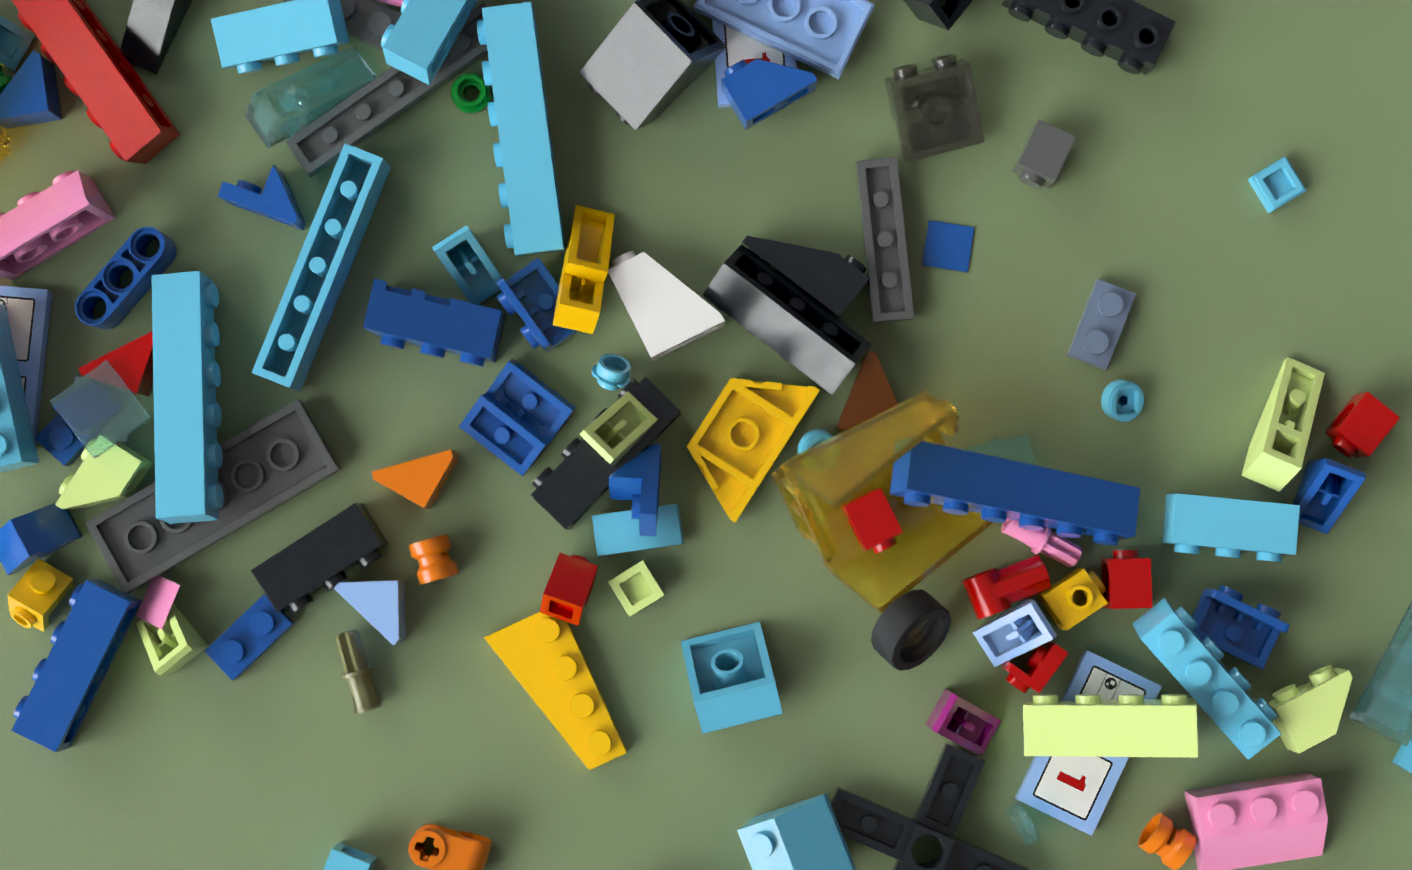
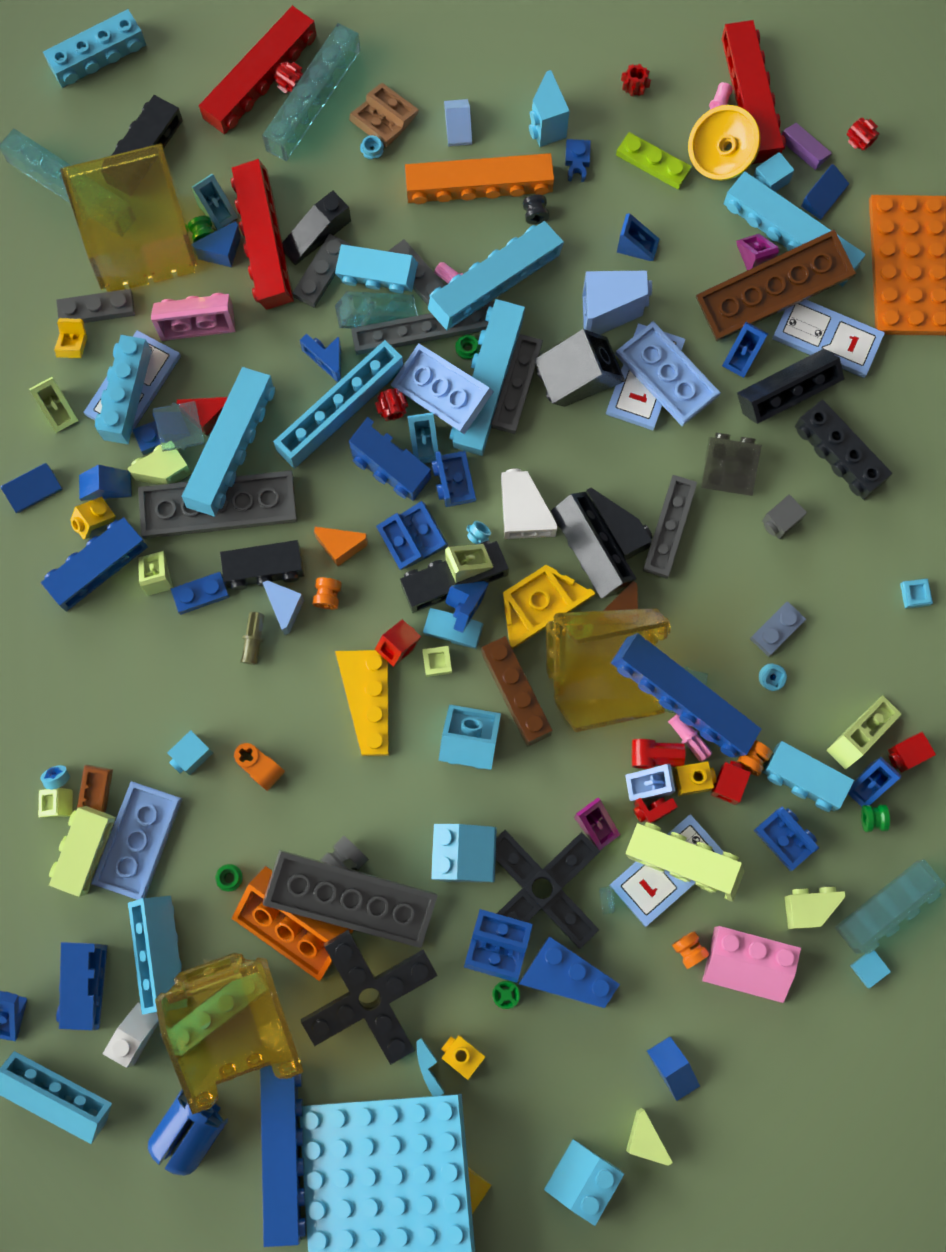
camera: 15 degrees right, 10 degrees down
(106, 283) = (213, 363): blue beam -> none
(158, 601) = (157, 549): bright pink sticker -> none
(198, 69) = (319, 272): none -> dark grey plate
(399, 233) = (391, 404): none -> red gear
(463, 180) = (442, 388): none -> light blue plate
(569, 119) = (516, 384): none -> dark grey plate
(584, 270) = (488, 468): yellow slope -> none
(763, 89) = (637, 412): blue slope -> none
(769, 584) = (516, 691): none -> reddish brown brick
(872, 520) = (593, 680): red brick -> none
(910, 629) = (583, 740): black tyre -> none
(948, 246) = (706, 547): blue sticker -> none
(1148, 531) = (756, 758): none -> orange wheel
(1206, 678) = (753, 852): medium azure brick -> none
(1348, 542) = (875, 818): none -> green wheel

